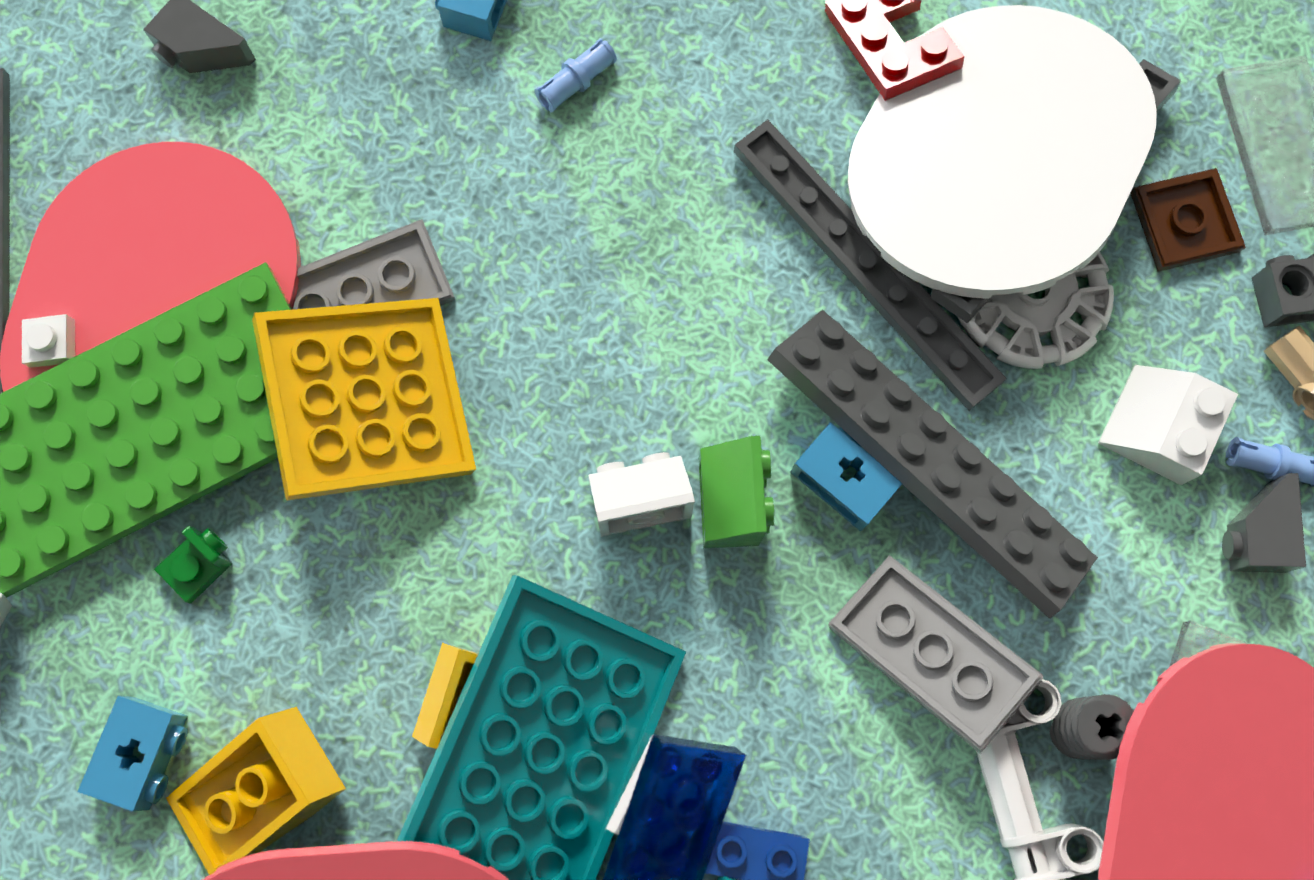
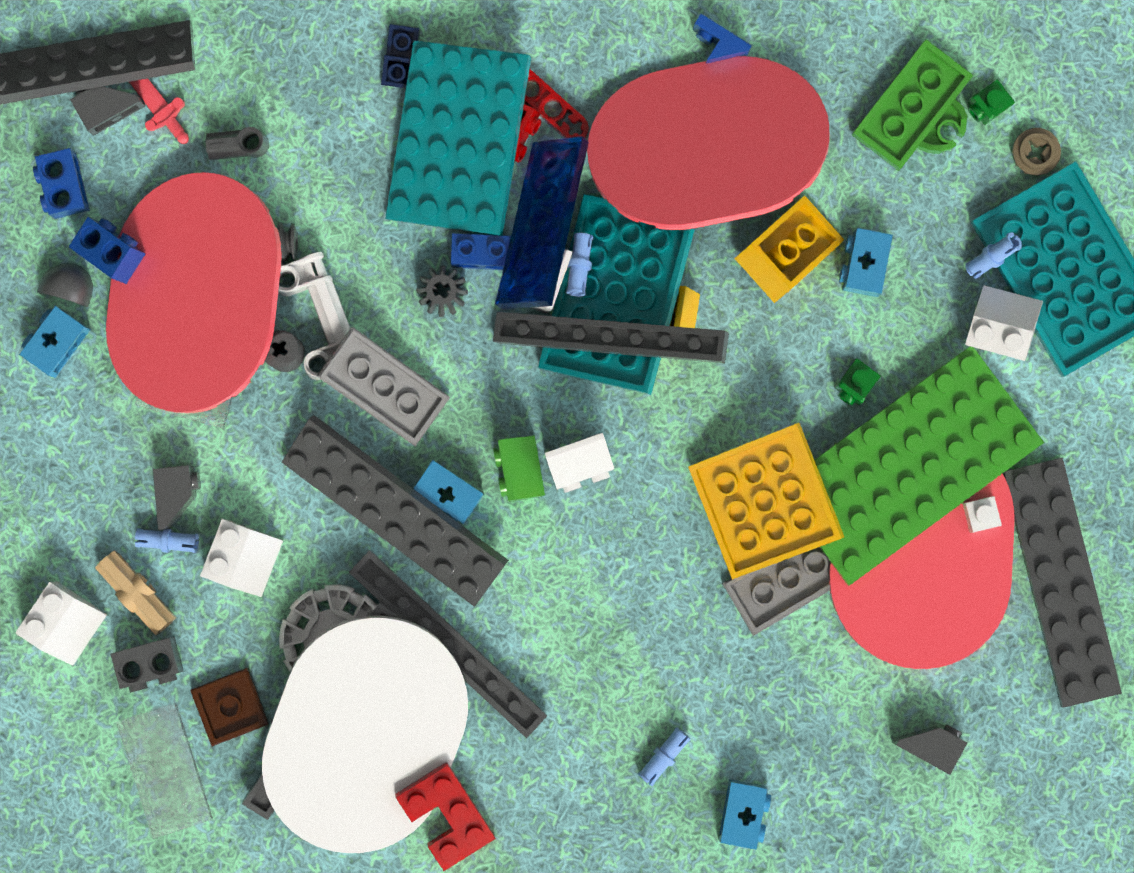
camera: 175 degrees right, 10 degrees up
(555, 673) = (611, 337): none -> dark grey plate
(597, 809) = (579, 264): none -> light blue pin
(819, 812) = (446, 281): none -> dark grey gear

